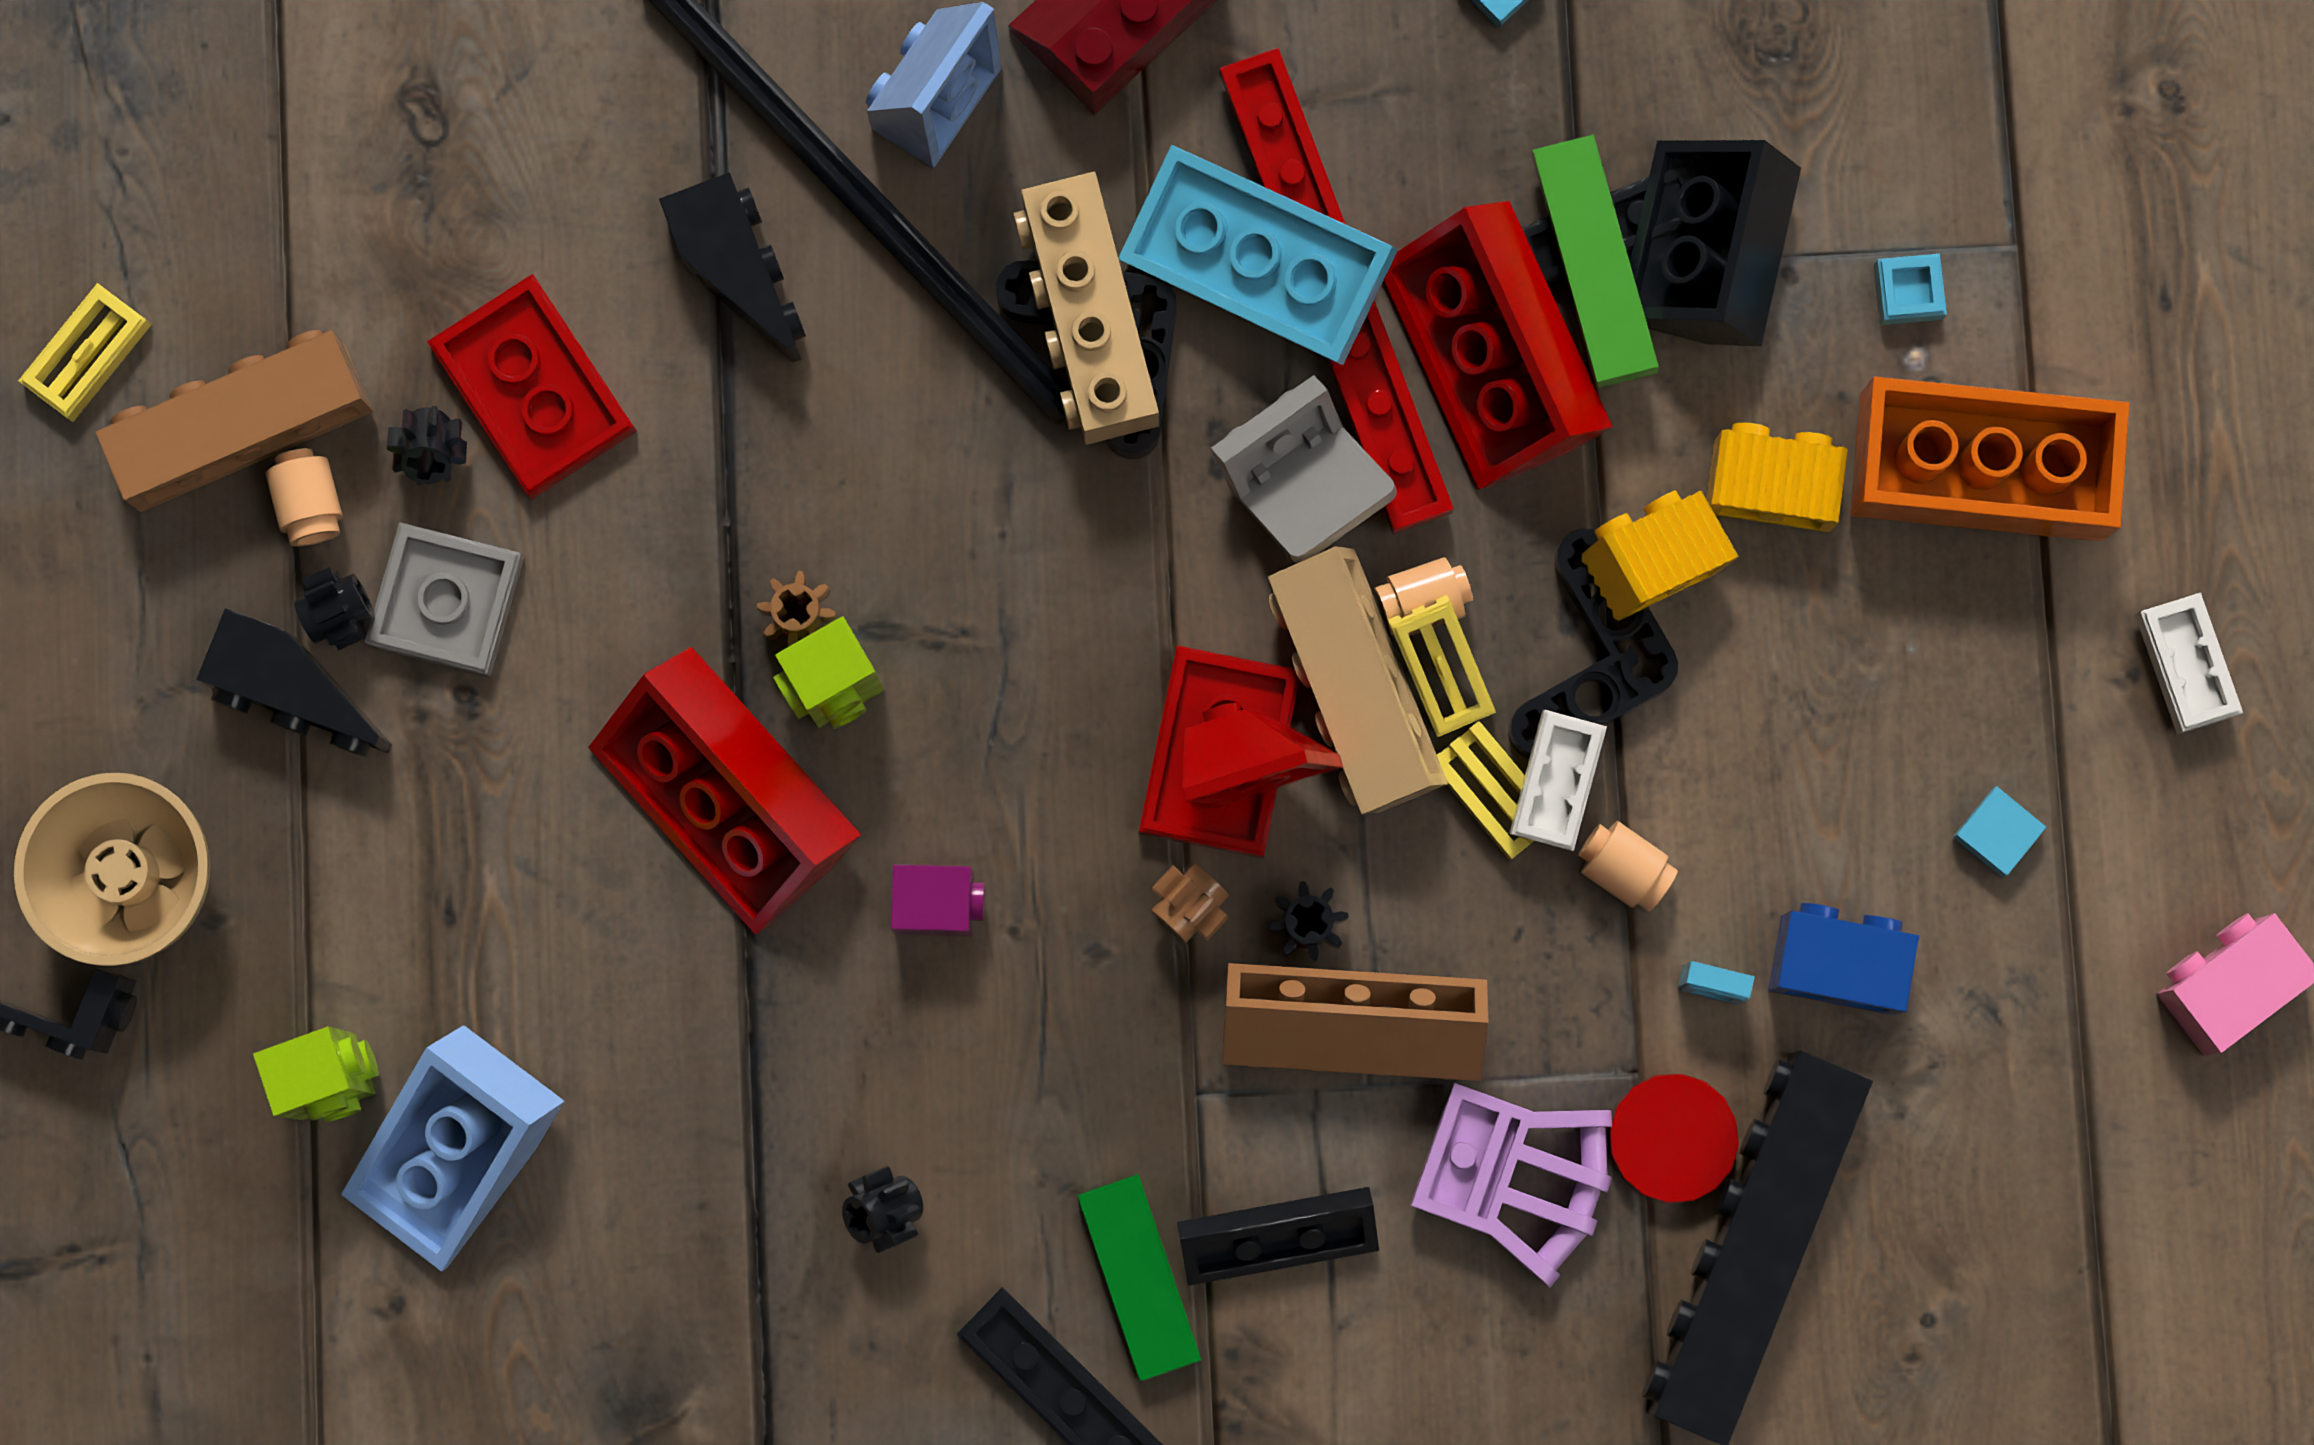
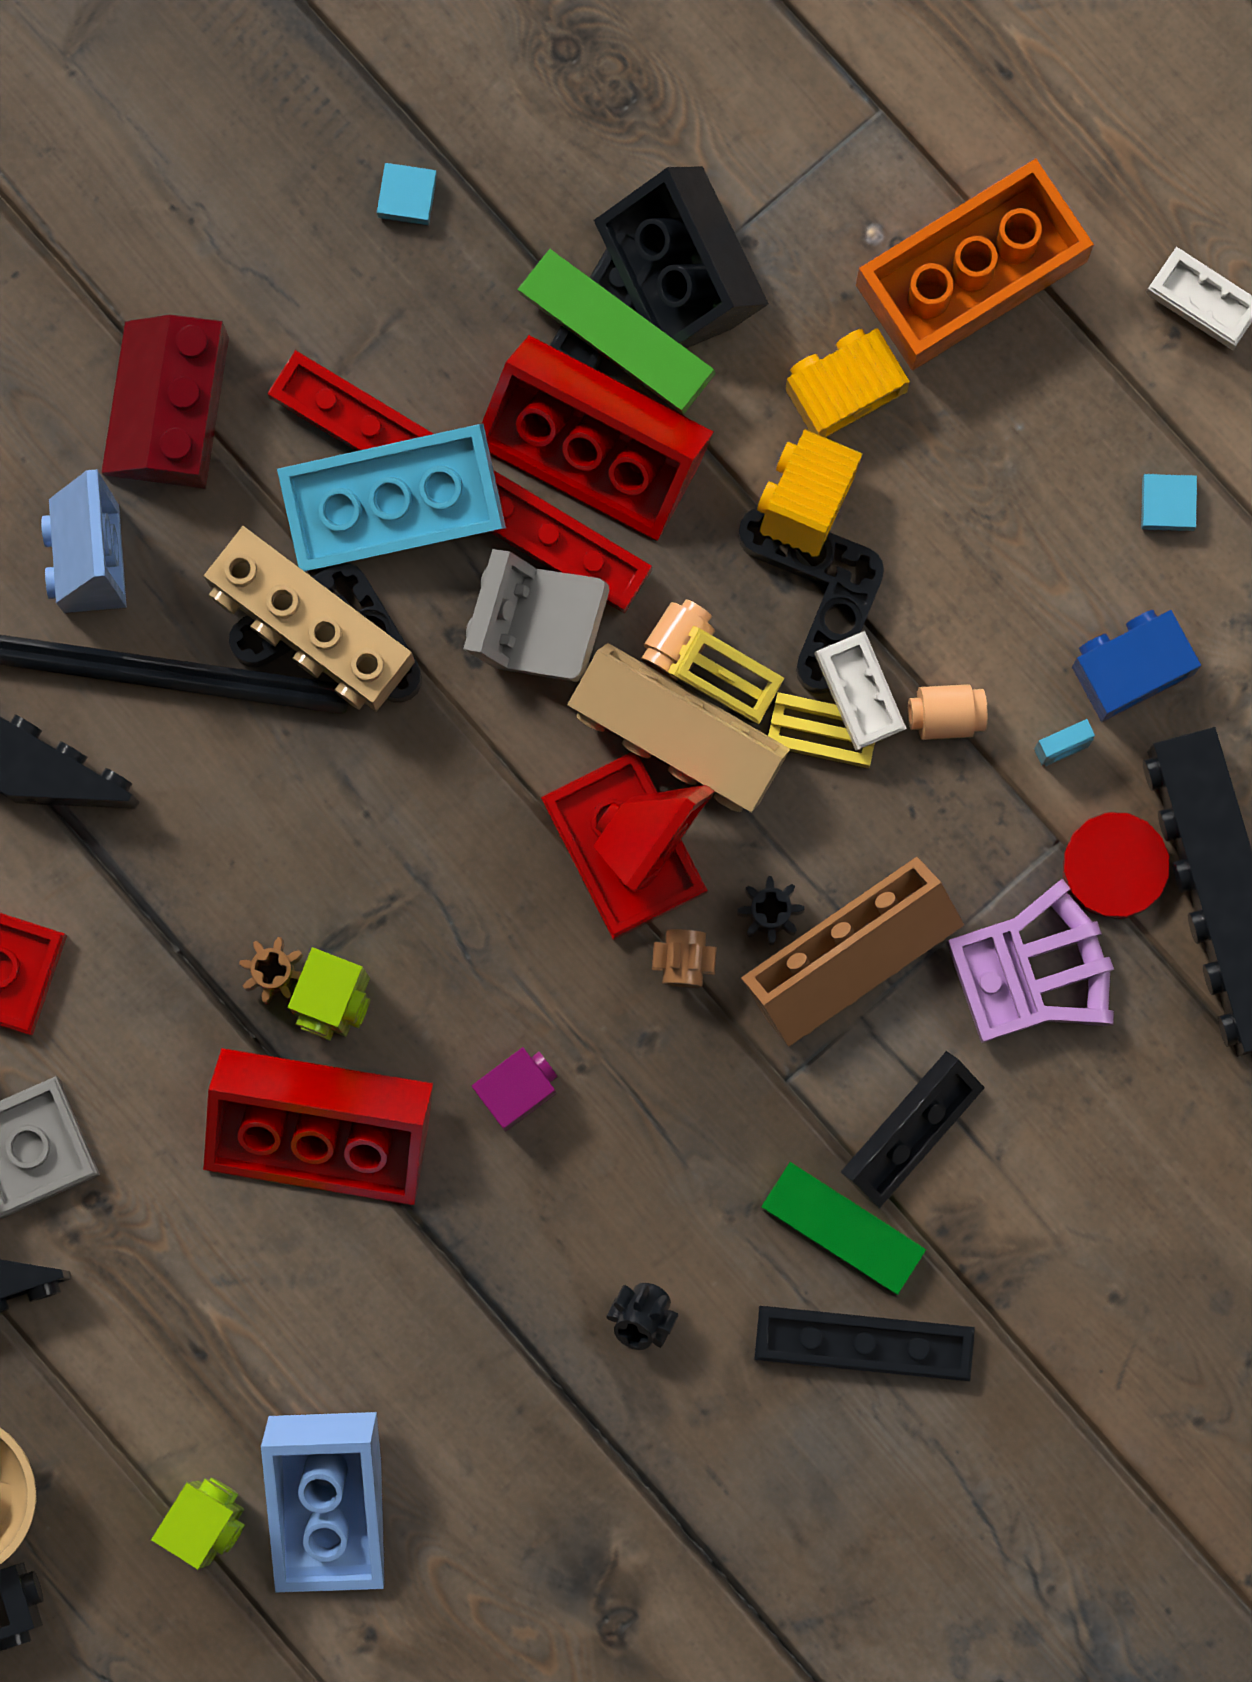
camera: 35 degrees left, 0 degrees up
(1910, 289) = (834, 191): medium azure tile -> none

